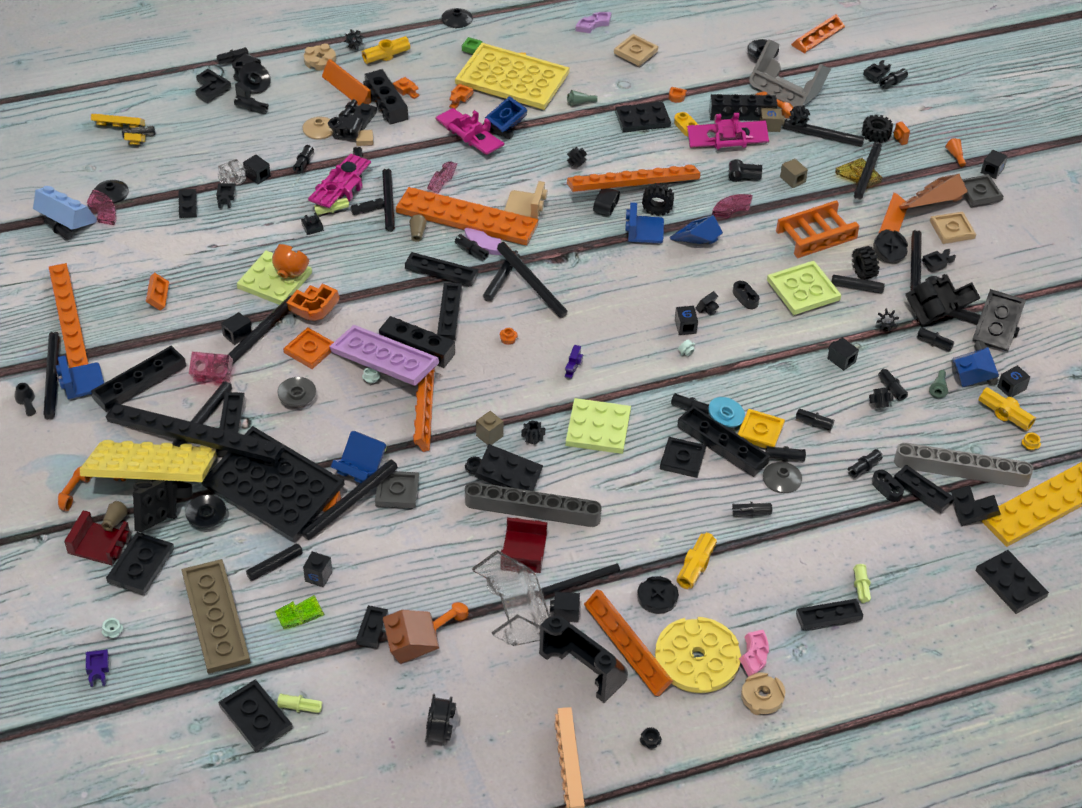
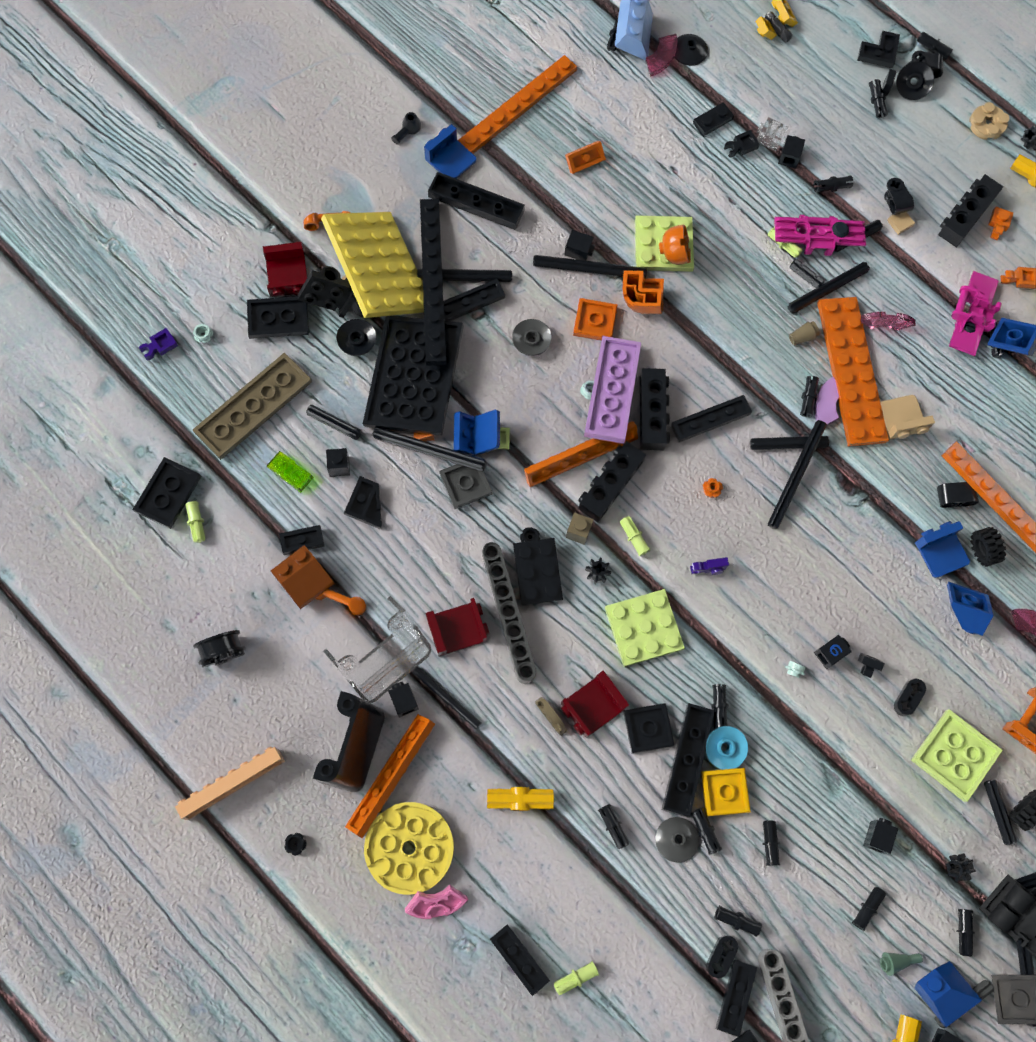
camera: 60 degrees right, 25 degrees up
(51, 375) = (459, 123): black axle -> none
(114, 515) = (316, 265): dark tan cone -> none
(211, 363) = (521, 248): clear pink brick -> none
(312, 224) = (752, 238): black tile -> none
(317, 128) = (882, 172): tan dish -> none
(346, 83) = (964, 166): orange slope -> none
(364, 112) = (930, 203): black plate -> none
(368, 566) = (365, 503): none -> black wing
(441, 269) = (762, 383): black plate -> none
(461, 391) = (597, 508): none -> black brick
(517, 399) = (634, 536): none -> yellowish green axle
(576, 157) = (1002, 435): black gear -> none
(636, 512) = (551, 715): none -> dark tan tile
(643, 480) = (594, 705): none -> dark red panel
(657, 595) = (464, 778): black tile -> none
(763, 704) = (379, 930): tan plate -> none
(881, 397) = (838, 904): black gear -> none

